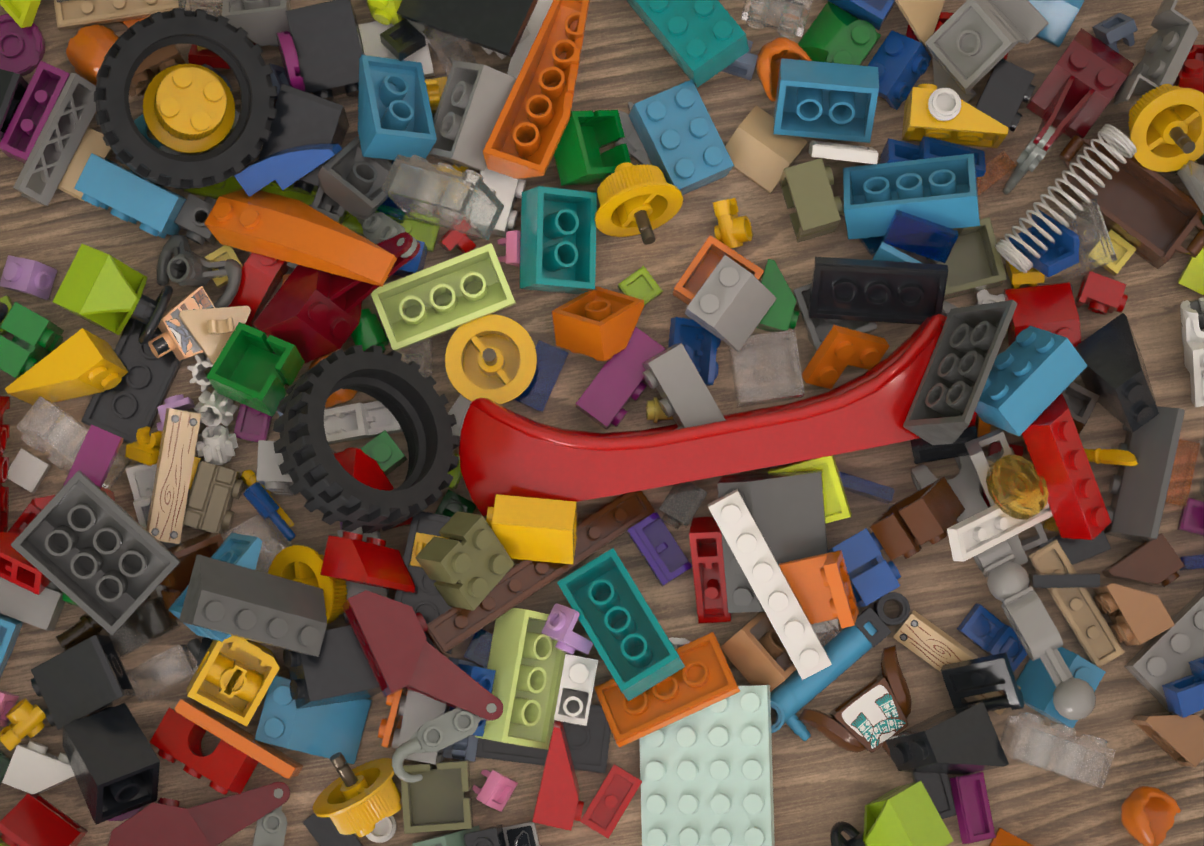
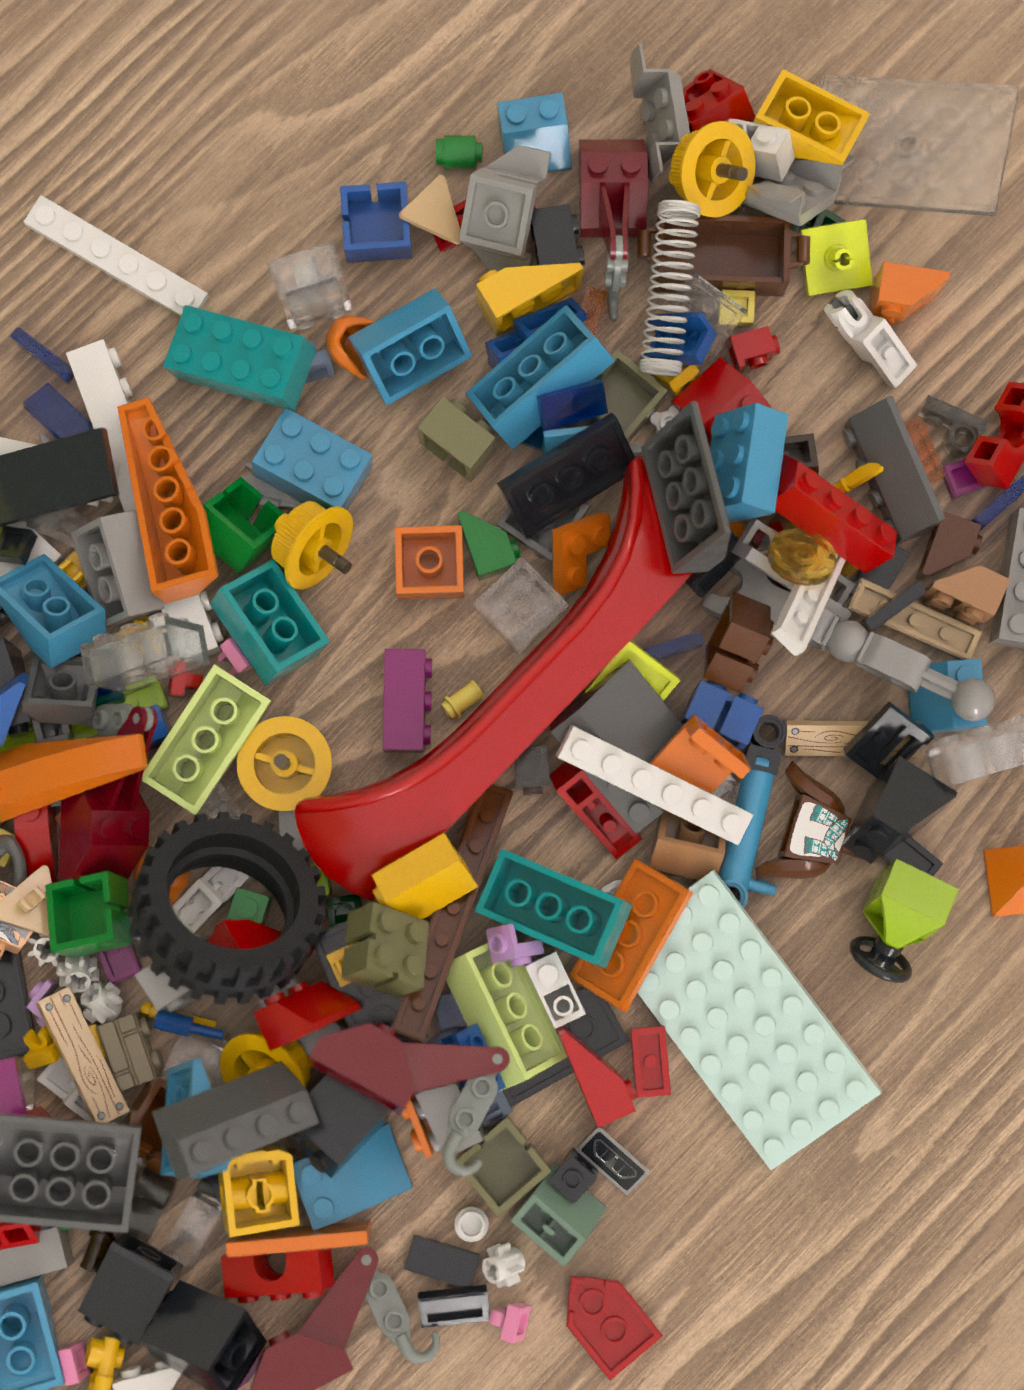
camera: 40 degrees left, 0 degrees up
(359, 796) = (437, 1213): yellow piece -> none
(369, 331) = (164, 813): green brick -> none
(495, 790) = (548, 1123): bright pink tile -> none
(549, 366) = (338, 736): clear blue tile -> none
(597, 323) = (352, 668): orange slope -> none
(641, 286) = (367, 614): lime tile -> none
(659, 549) = (539, 821): hinge -> none
(681, 388) = (463, 674): light grey brick -> none
(699, 344) = (449, 636): blue bracket -> none
(730, 303) = (454, 572): light grey slope -> none
(731, 228) = (407, 510): yellow plate -> none
(761, 153) = (384, 428): tan slope -> none
(839, 37) = (383, 286): green slope -> none
(843, 152) = (456, 380): white tile -> none
(899, 67) = (452, 274): blue bracket -> none
(944, 104) = (513, 279): white plate -> none
(972, 807) = (951, 849): magenta tile -> none
(992, 635) = (865, 694): blue slope -> none
(1114, 29) = (607, 121): sand blue tile -> none
(1118, 373) = (816, 404): black slope -> none

